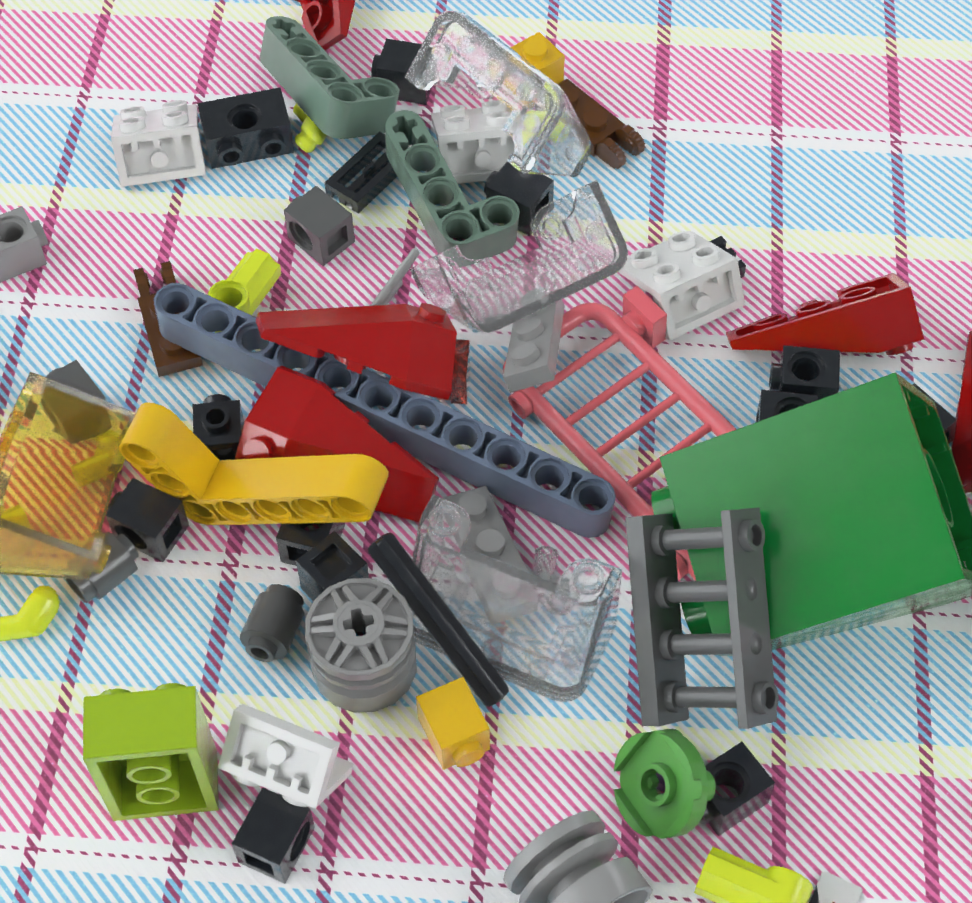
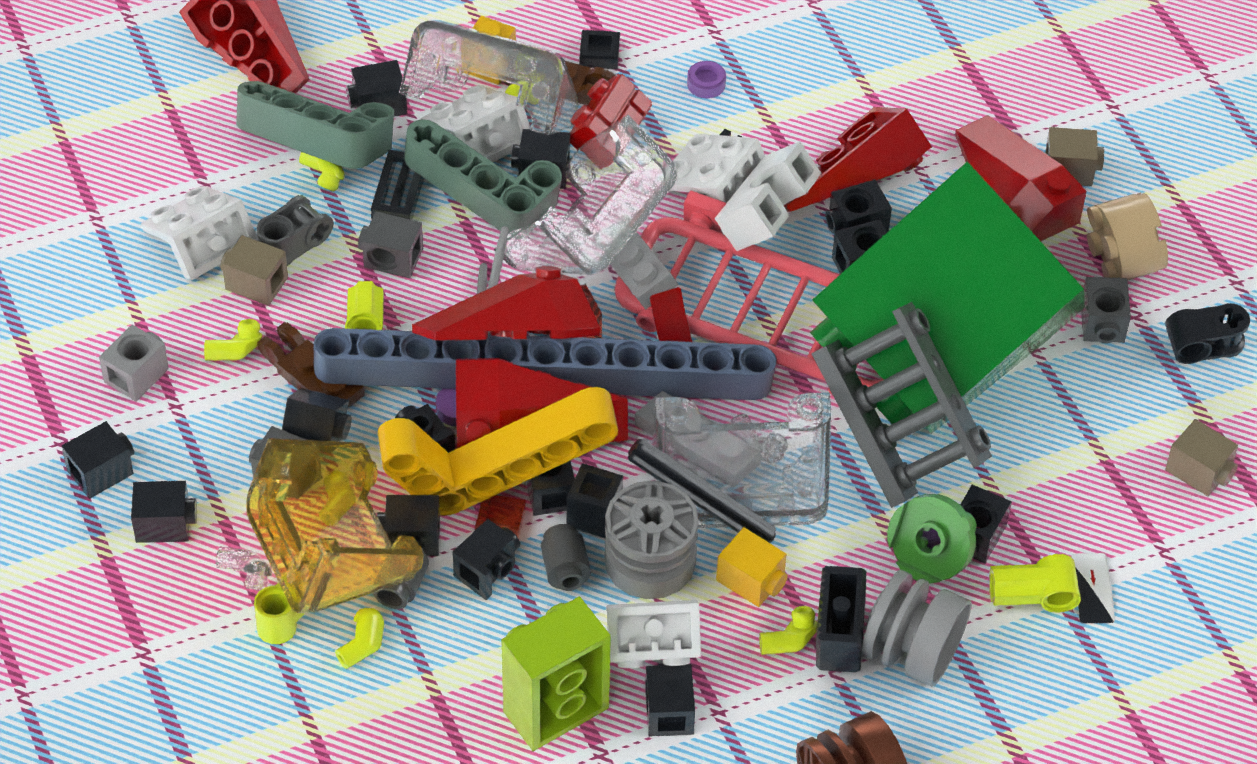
camera: 30 degrees left, 5 degrees down
(114, 268) = (236, 347): none -> neon yellow arm
(127, 369) = (317, 416): none -> black brick
(177, 199) = (254, 270): none -> dark tan brick
(195, 586) = (485, 557): none -> black brick
(232, 176) = (293, 228): none -> dark grey piece
(243, 551) = (504, 512): none -> clear red tile
(246, 128) = (274, 182): black brick -> none
(456, 823) = (794, 636): none -> neon yellow arm
(507, 824) = (841, 619): none -> black brick
(535, 413) = (670, 316): none -> red sticker
(617, 168) = (608, 104): none -> red brick
(648, 110) = (599, 49): none -> black tile
(693, 329) = (758, 204): none -> white arch
(736, 179) = (706, 79): none -> medium lavender tile

